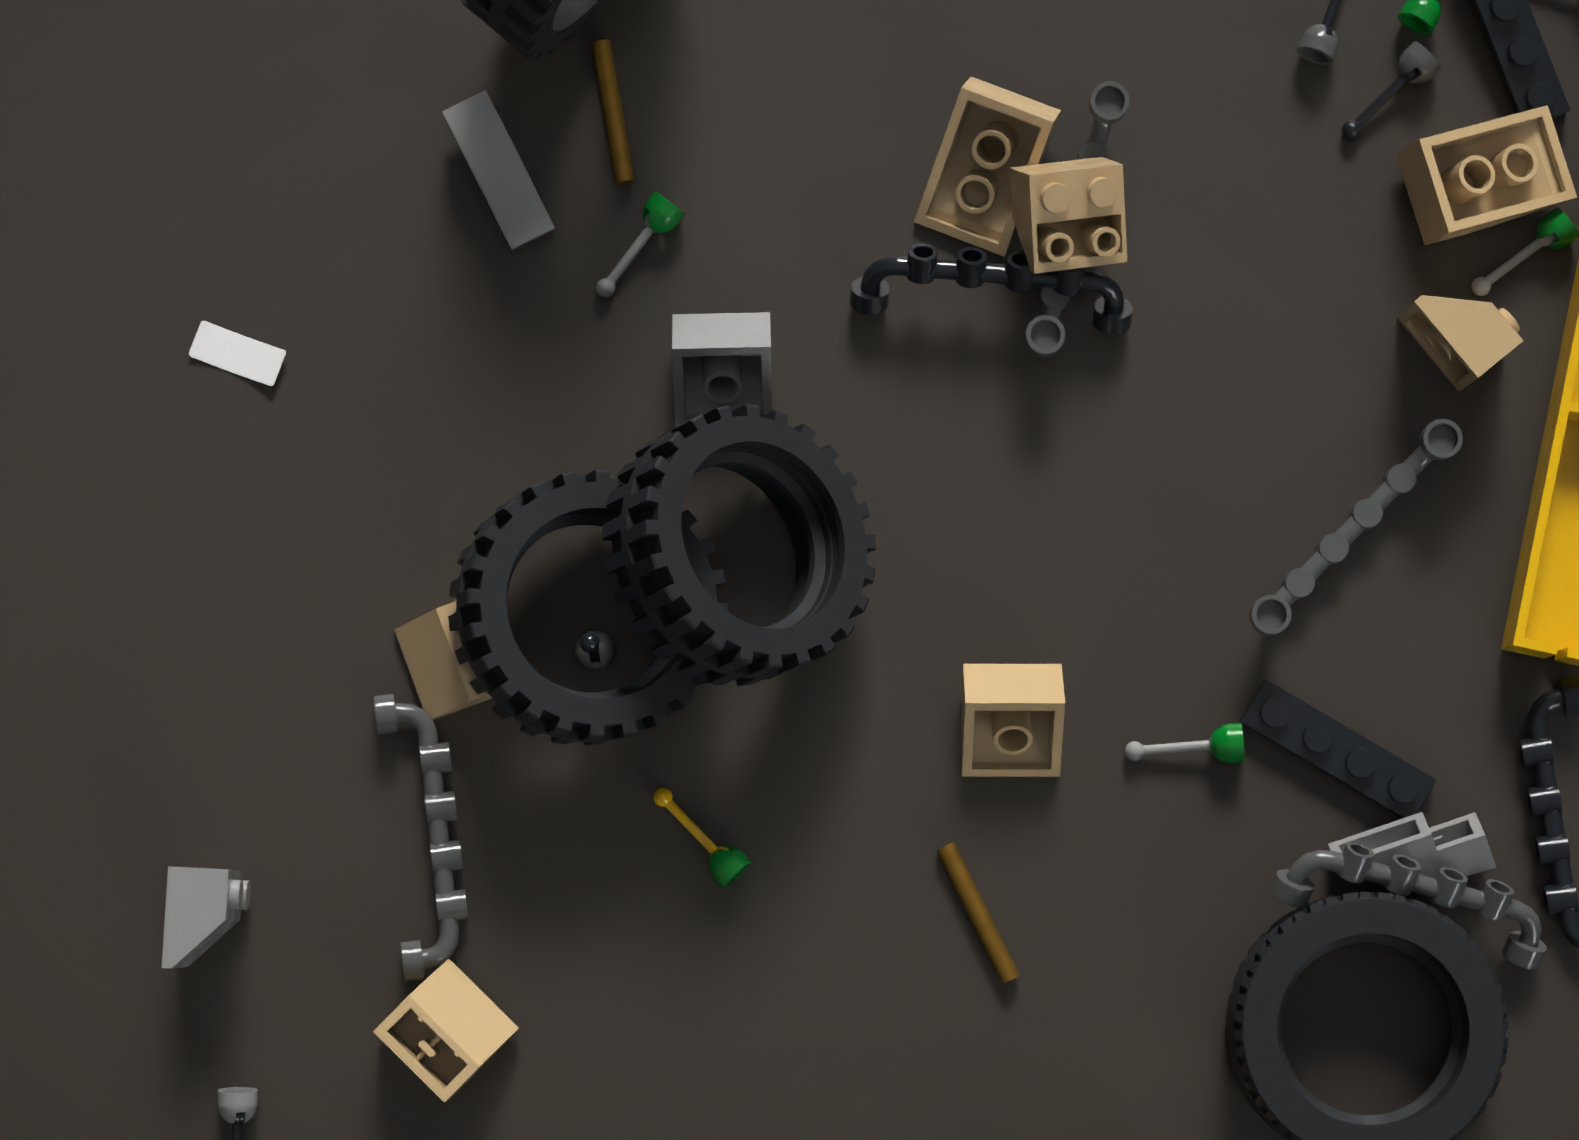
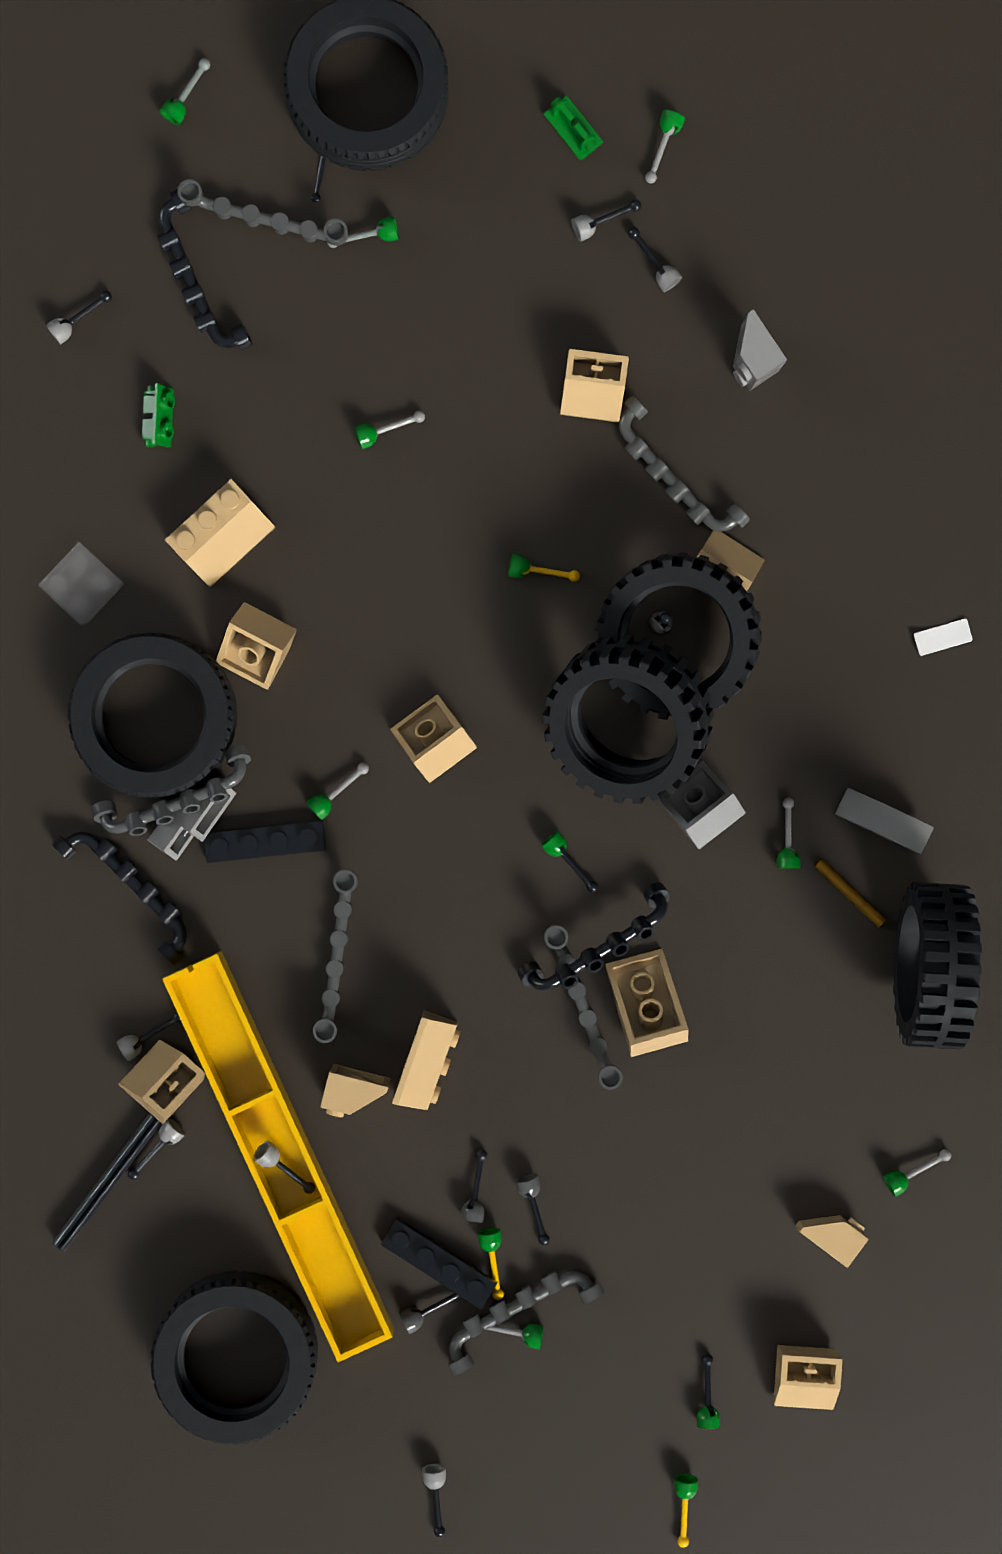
camera: 145 degrees right, 5 degrees up
(953, 457) = (556, 846): none -> hinge
(978, 912) = (380, 633): pearl gold bar -> none
(1070, 213) = (588, 1006): tan slope -> none
(1158, 1021) = (255, 645): none -> tan slope
(1336, 301) = (426, 1061): none -> tan slope
(1485, 174) = (399, 1180): tan slope -> none
(1552, 231) = (345, 1176): hinge -> none

